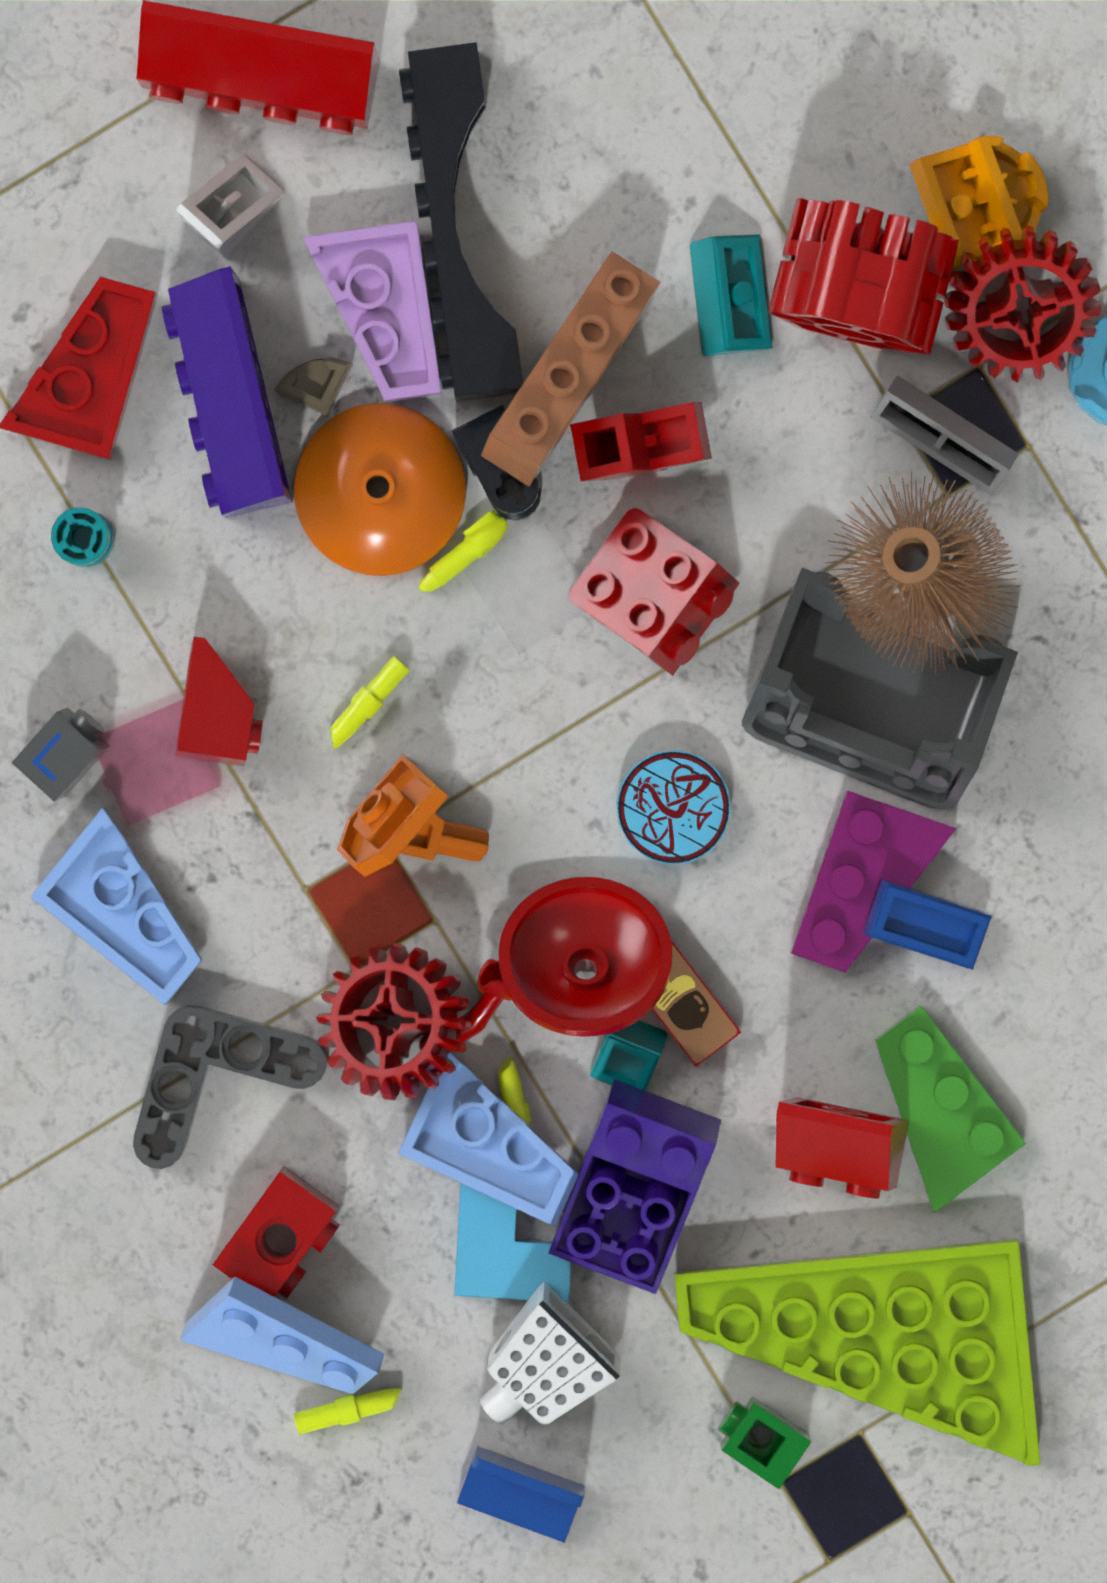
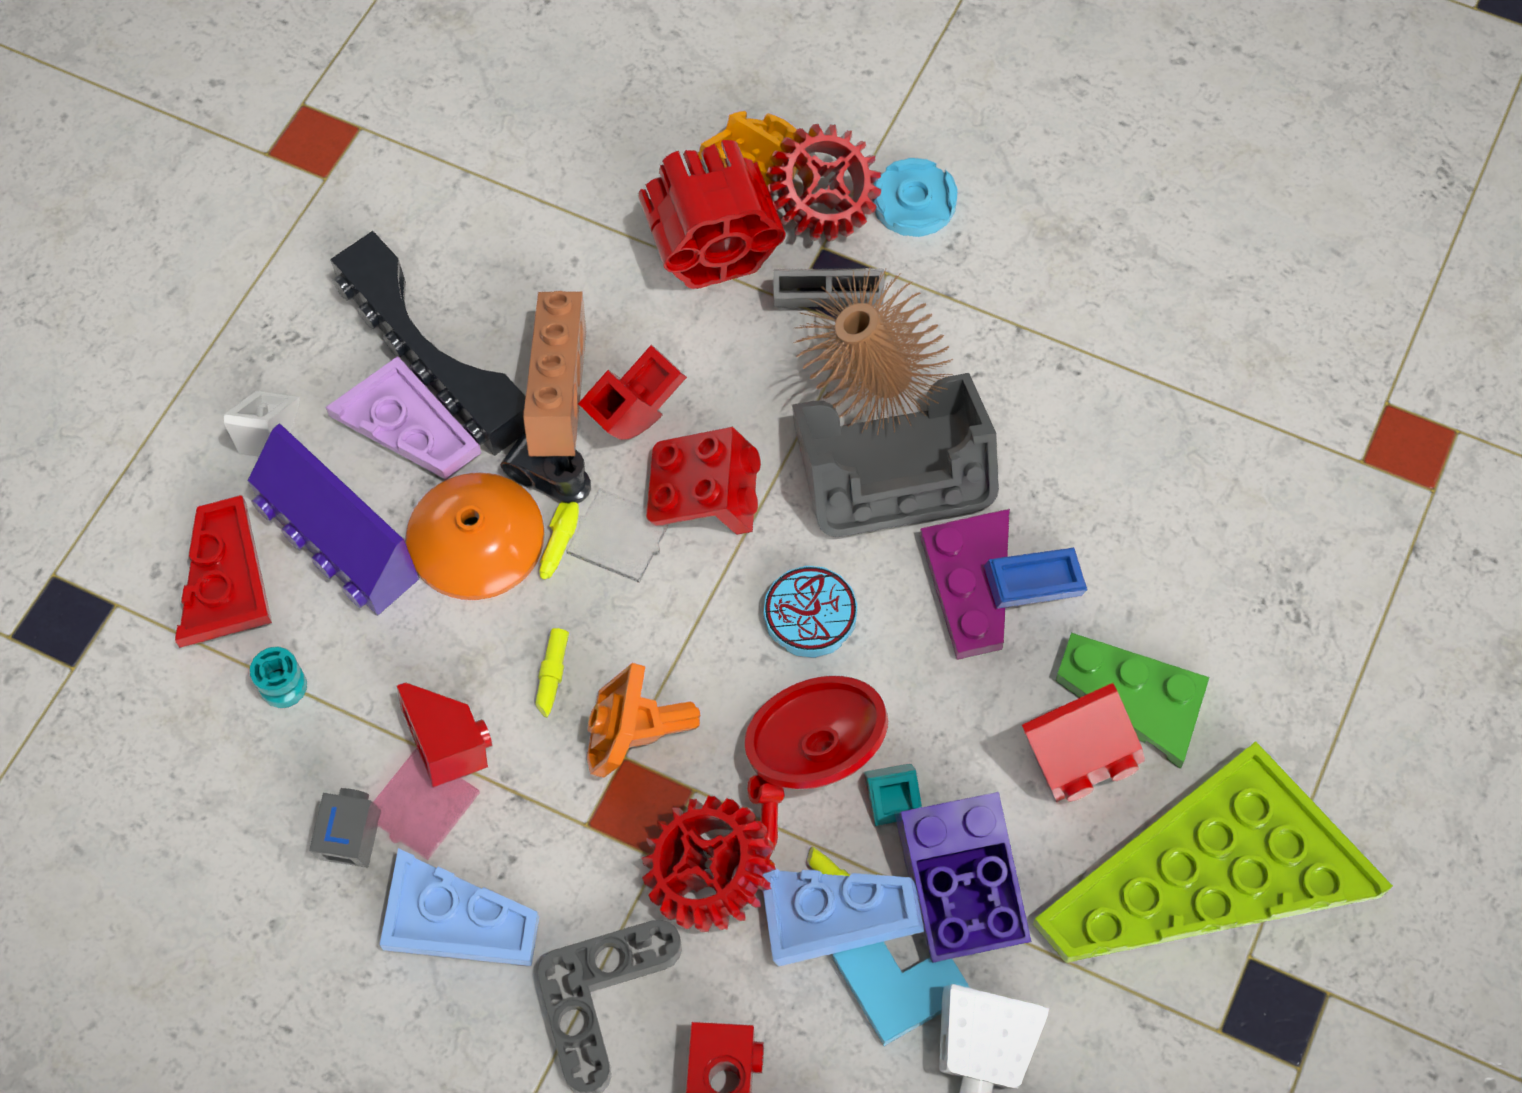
camera: 30 degrees left, 25 degrees down
(256, 67) = (230, 319): red slope -> none
(315, 383) = (391, 494): dark tan tile -> none
(693, 1012) = (919, 736): tile -> none
(730, 294) = (634, 293): teal slope -> none
(775, 1458) = (1198, 986): green brick -> none

